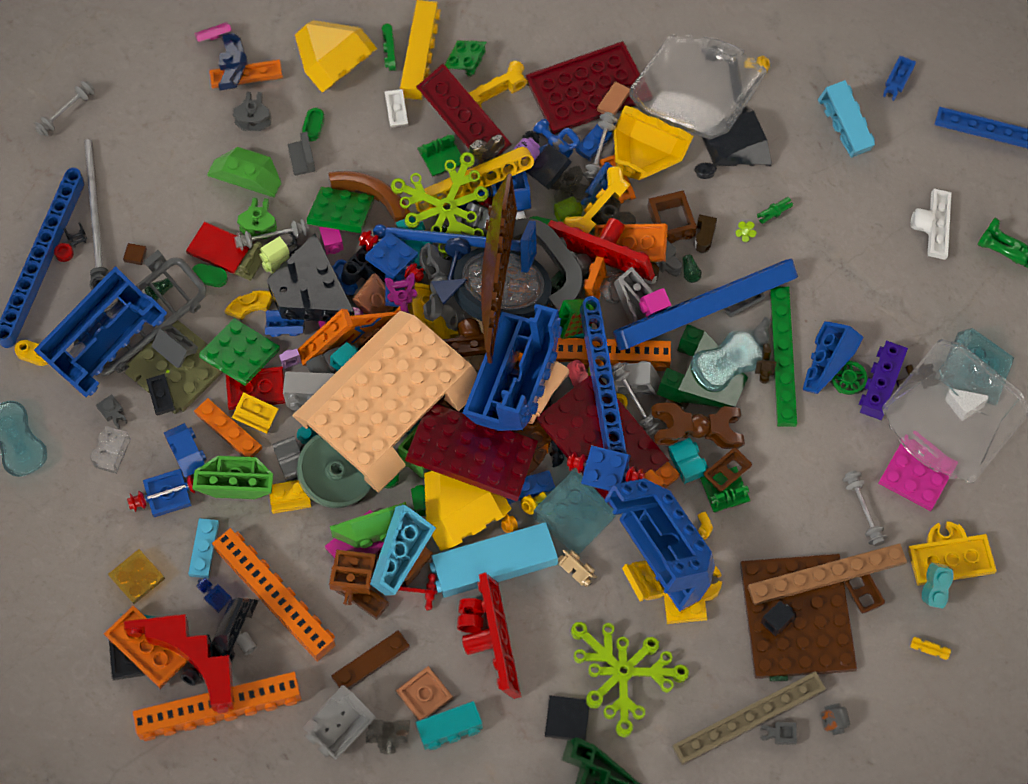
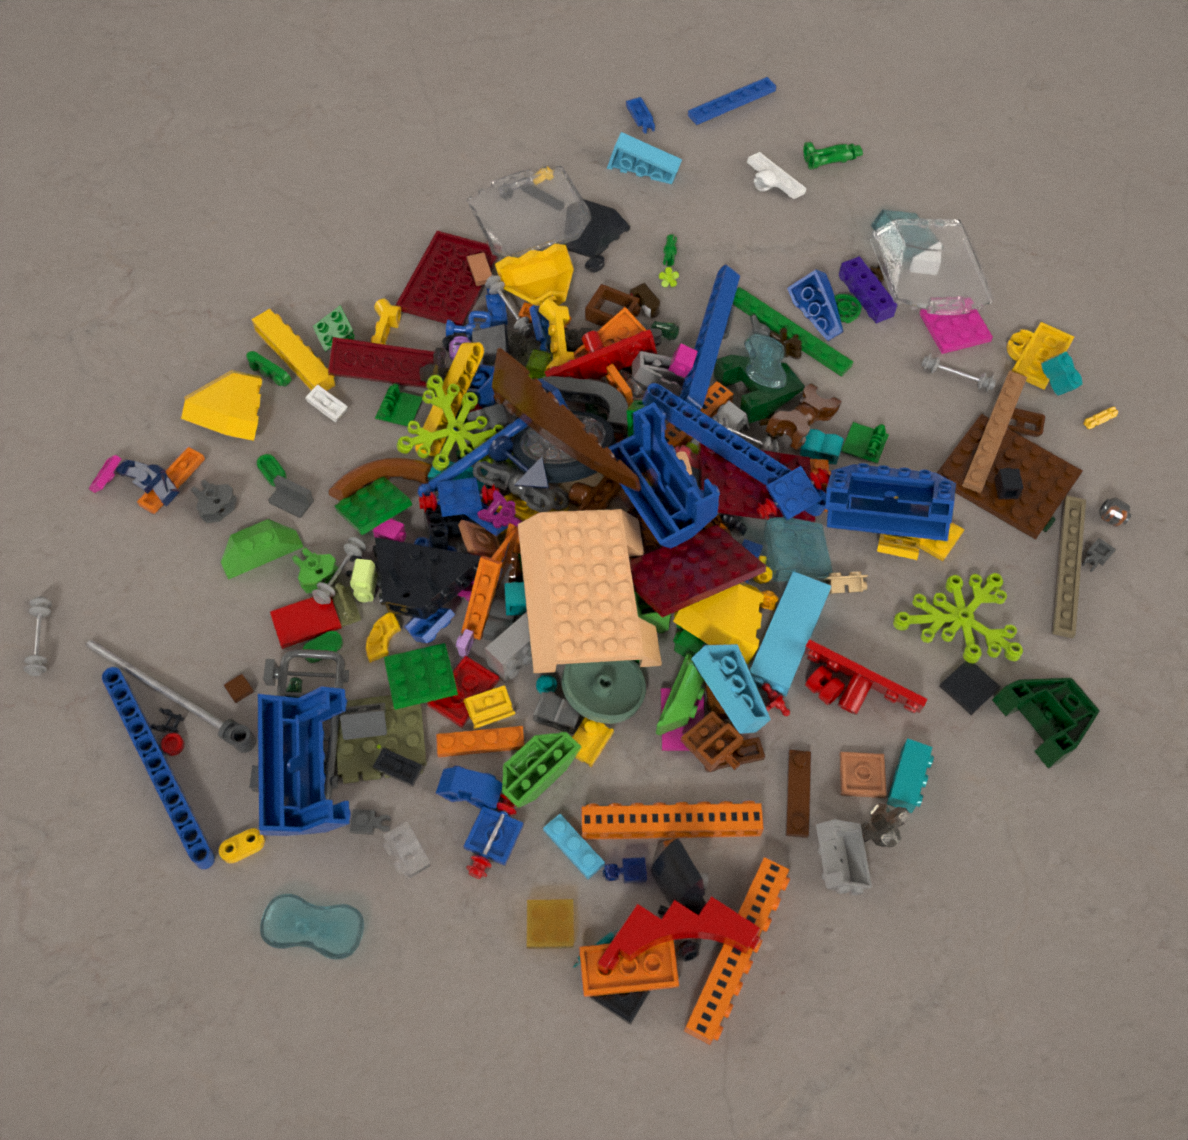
camera: 50 degrees left, 5 degrees down
(721, 466) = (863, 430): reddish brown piece -> none

